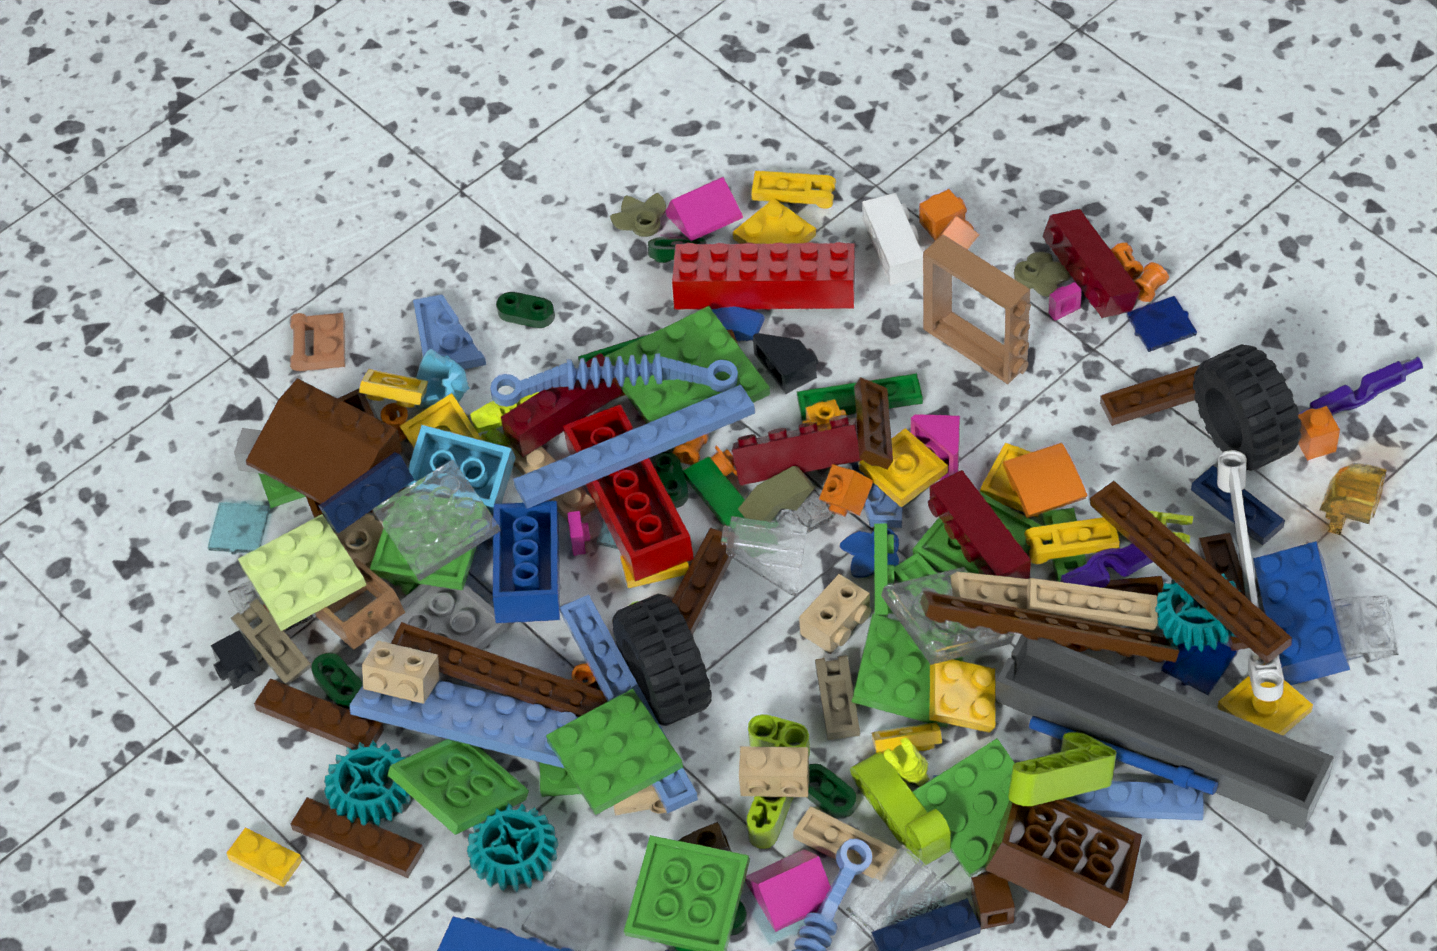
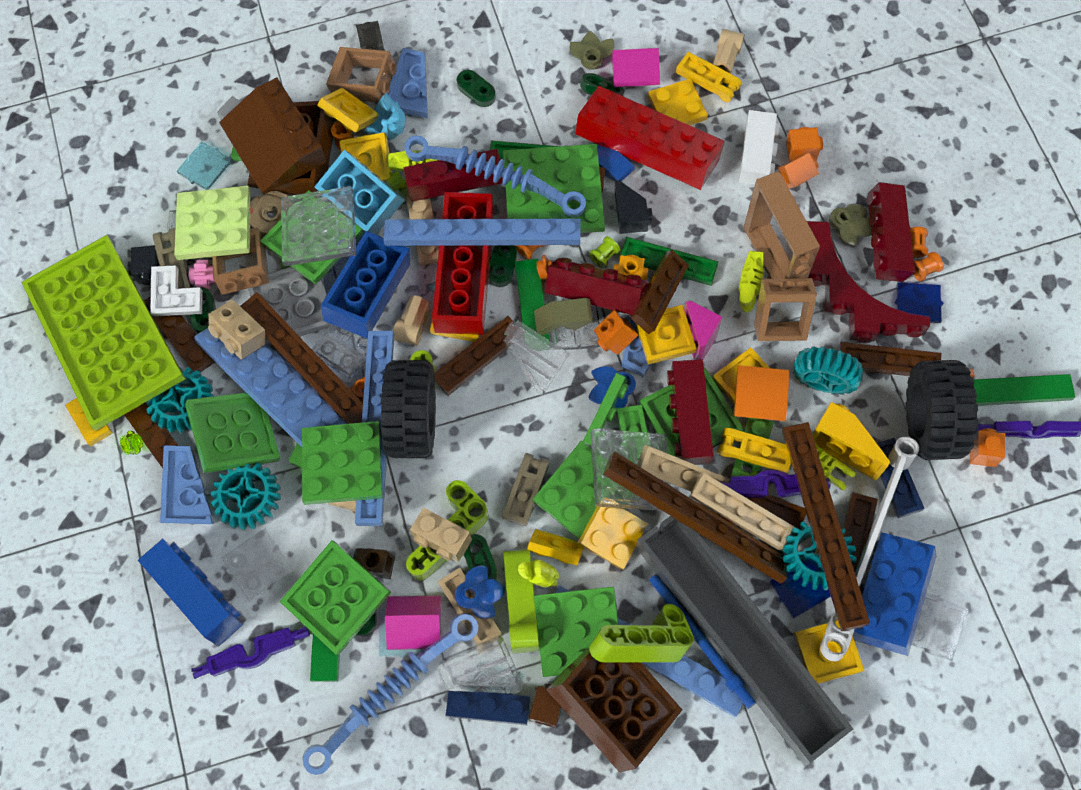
camera: 25 degrees right, 15 degrees up
(229, 749) = (102, 332): none -> lime plate
(296, 679) = (167, 298): none -> white plate
(315, 639) = (201, 274): none -> bright pink gear
(328, 341) = (328, 55): nougat plate -> none
(332, 861) = (131, 443): none -> clear neon green plate
(366, 492) = (280, 184): dark blue plate -> none
(367, 308) = (370, 36): none -> clear smoke brick
(374, 329) = (351, 57): none -> medium nougat window
(432, 873) = (182, 488): none -> medium blue wing
(538, 644) = (342, 351): none -> clear slope
(578, 532) = (417, 276): dark pink plate -> none
(599, 580) = (410, 327): none -> tan piece
(783, 412) = (604, 252): none -> lime bush
(799, 148) = (728, 48): none -> tan piece
(835, 614) = (558, 424): tan brick -> none
(848, 818) = (483, 592): none -> blue plate
(965, 377) = (751, 280): none -> neon yellow hinge
(1010, 361) = (775, 292): none -> medium nougat window
(1064, 301) = (855, 253): dark pink plate -> none
(1104, 426) = (828, 370): none -> teal gear
(1111, 356) = (843, 296): none -> dark red arch
(1171, 485) = (848, 441): none -> yellow slope
(1328, 358) = (1024, 389): none -> green tile
(1353, 495) = (986, 515): clear yellow brick -> none

